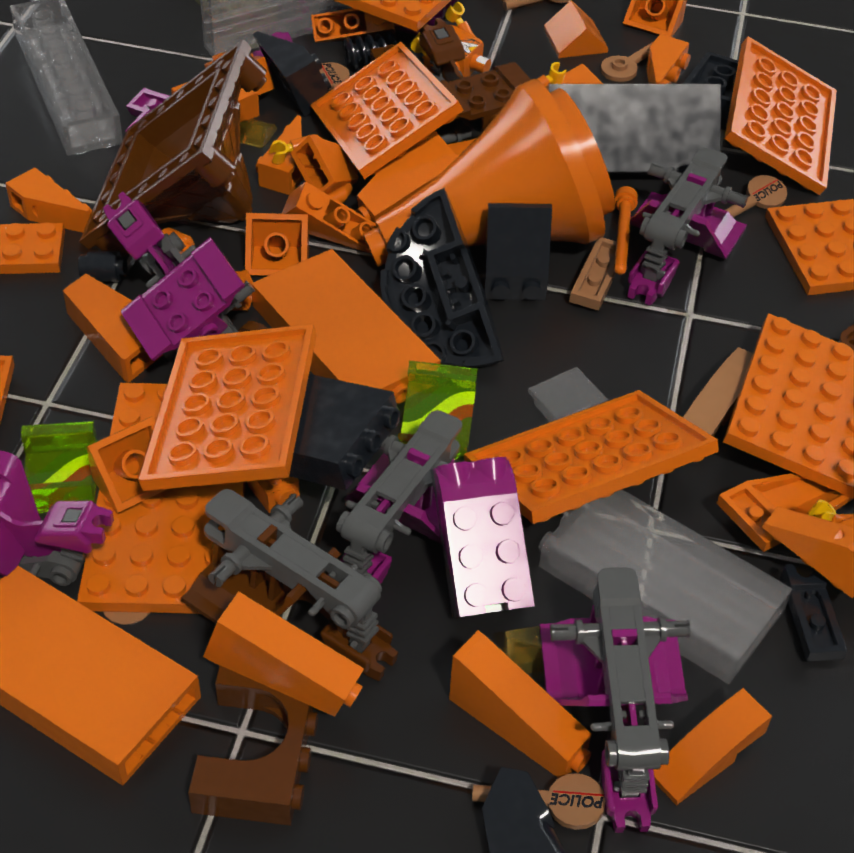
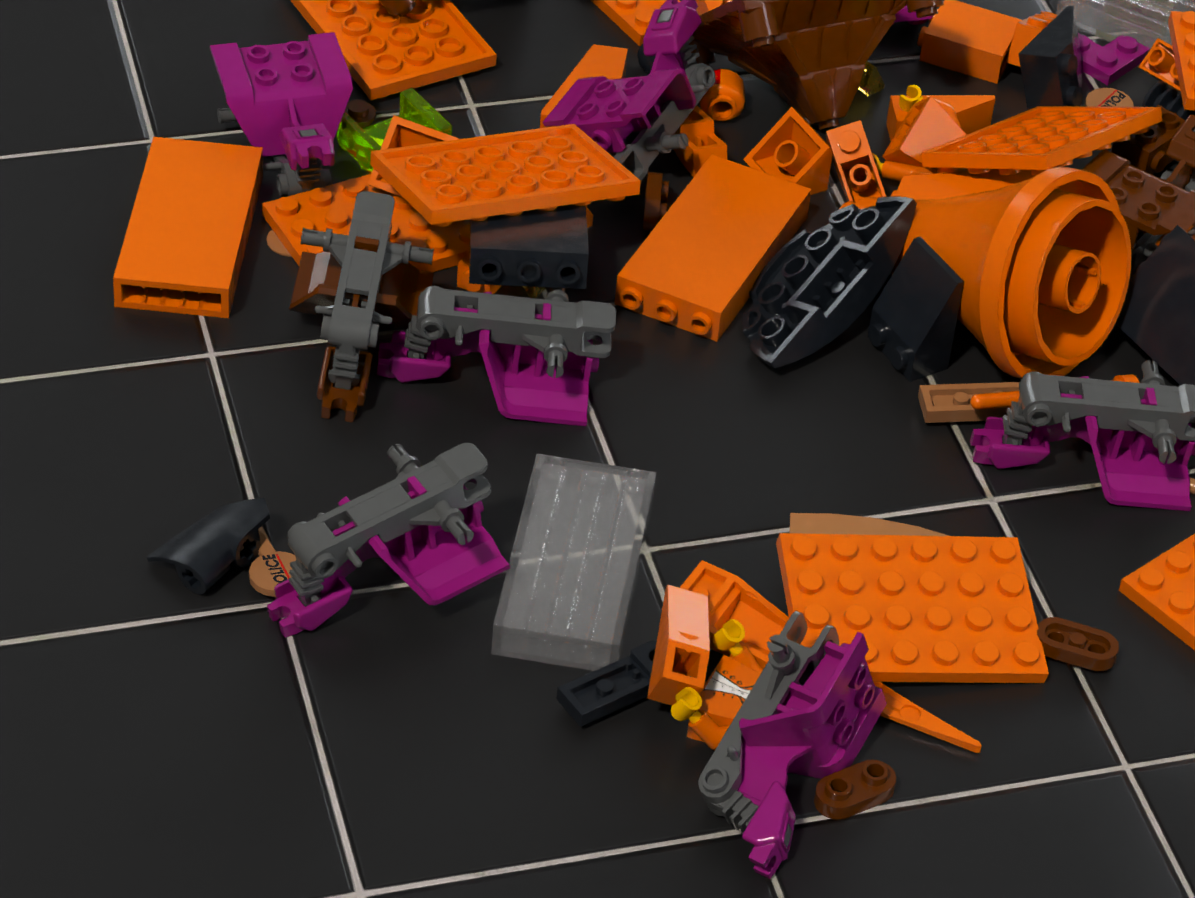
camera: 60 degrees right, 5 degrees down
(256, 132) = (961, 83): clear yellow slope -> none
(261, 787) = (169, 381): reddish brown arch -> none
(282, 657) = (265, 312): orange slope -> none
(441, 389) = (658, 339): clear neon green panel -> none
(482, 537) = (499, 391): piece -> none
(517, 707) = (346, 462): orange slope -> none
(566, 394) = (771, 432): clear piece -> none
(597, 453) = (680, 453): orange plate -> none
(712, 746) = (398, 644): orange slope -> none

